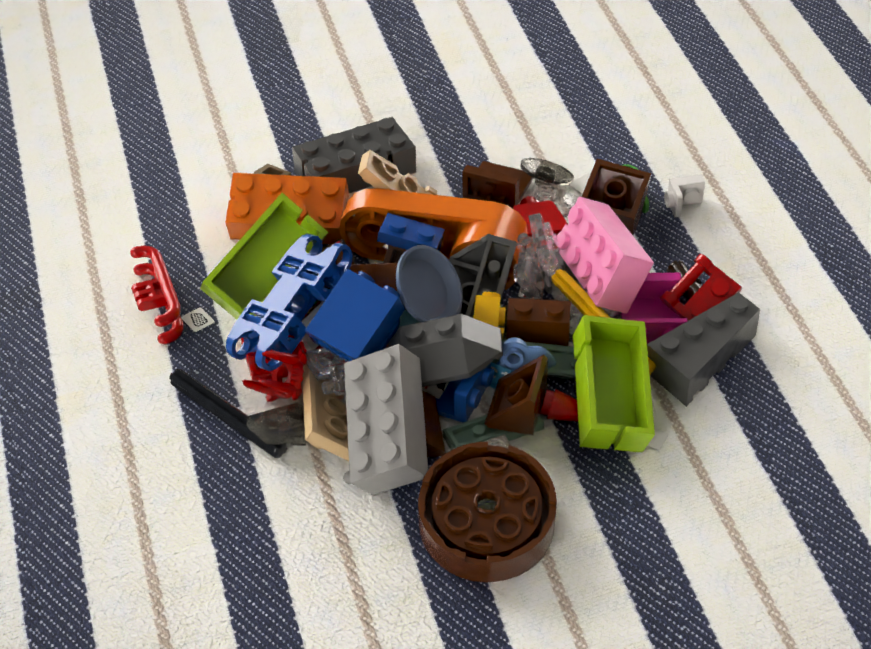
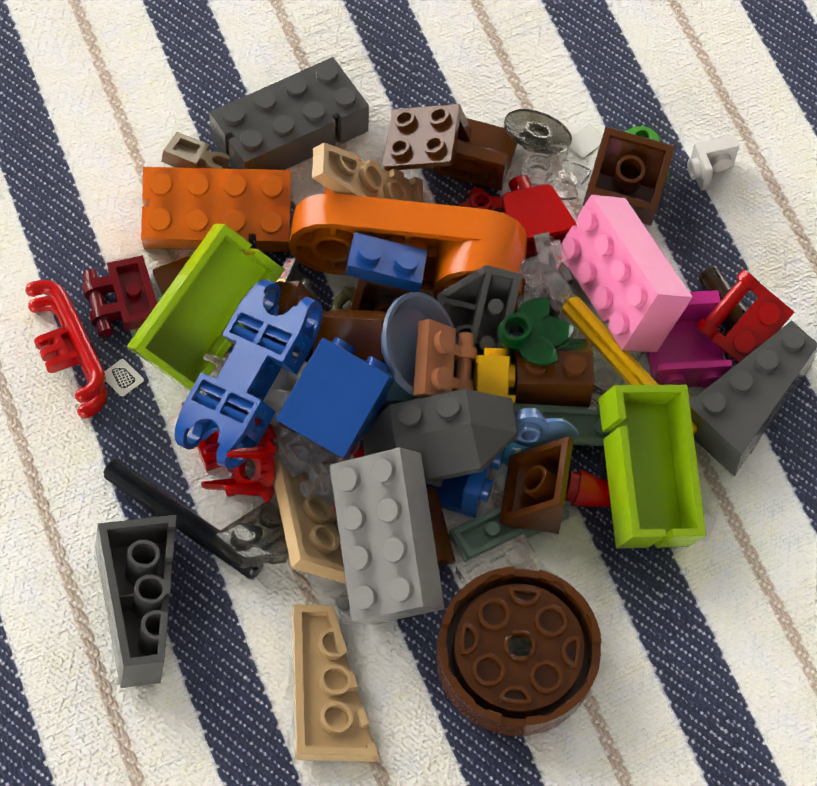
camera: 10 degrees left, 15 degrees up
(180, 454) = (136, 588): none -> dark grey wedge
(208, 255) = (132, 293): none -> dark red plate
(323, 544) = (326, 699): none -> tan wing
(443, 293) = (436, 359): none -> nougat plate
(456, 165) = (424, 136): none -> bracket
(523, 283) = (539, 331): none -> dark green plate

